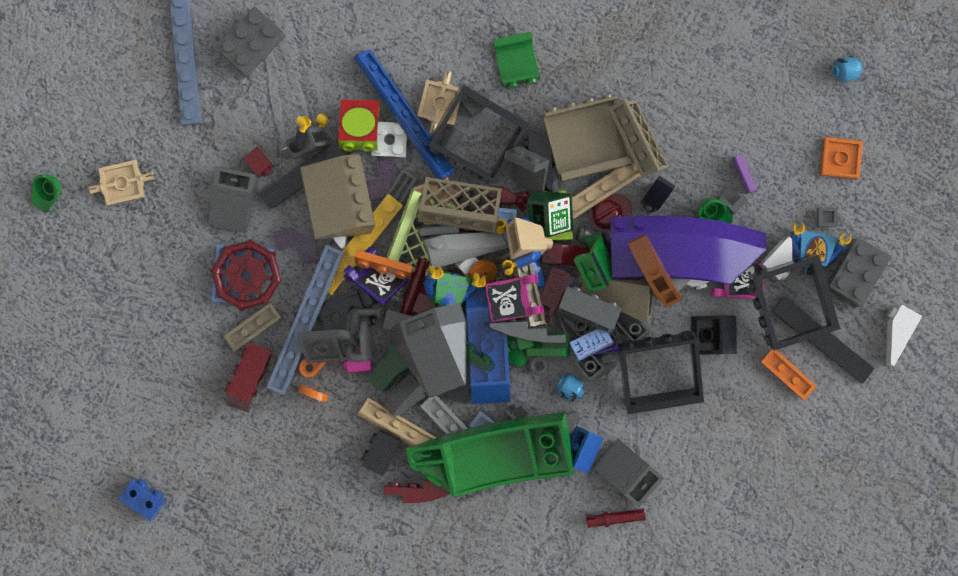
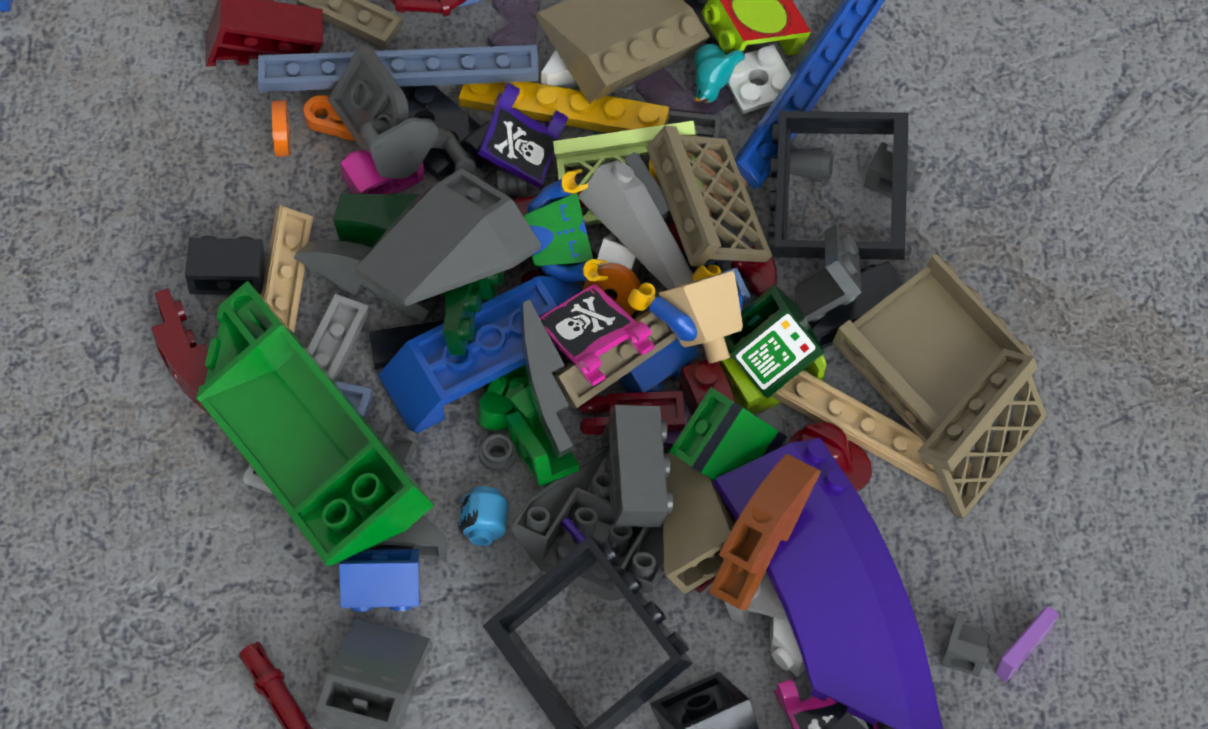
camera: 60 degrees right, 25 degrees down
(379, 162) = (713, 70): none -> teal animal
(383, 265) = (547, 132): orange plate -> none
(436, 100) = (858, 146): tan plate -> none
(516, 60) = (1000, 206): green panel -> none
(590, 343) = (578, 504): light blue tile -> none
(657, 194) = (905, 500): black slope -> none
(714, 210) = (934, 614): green piece -> none

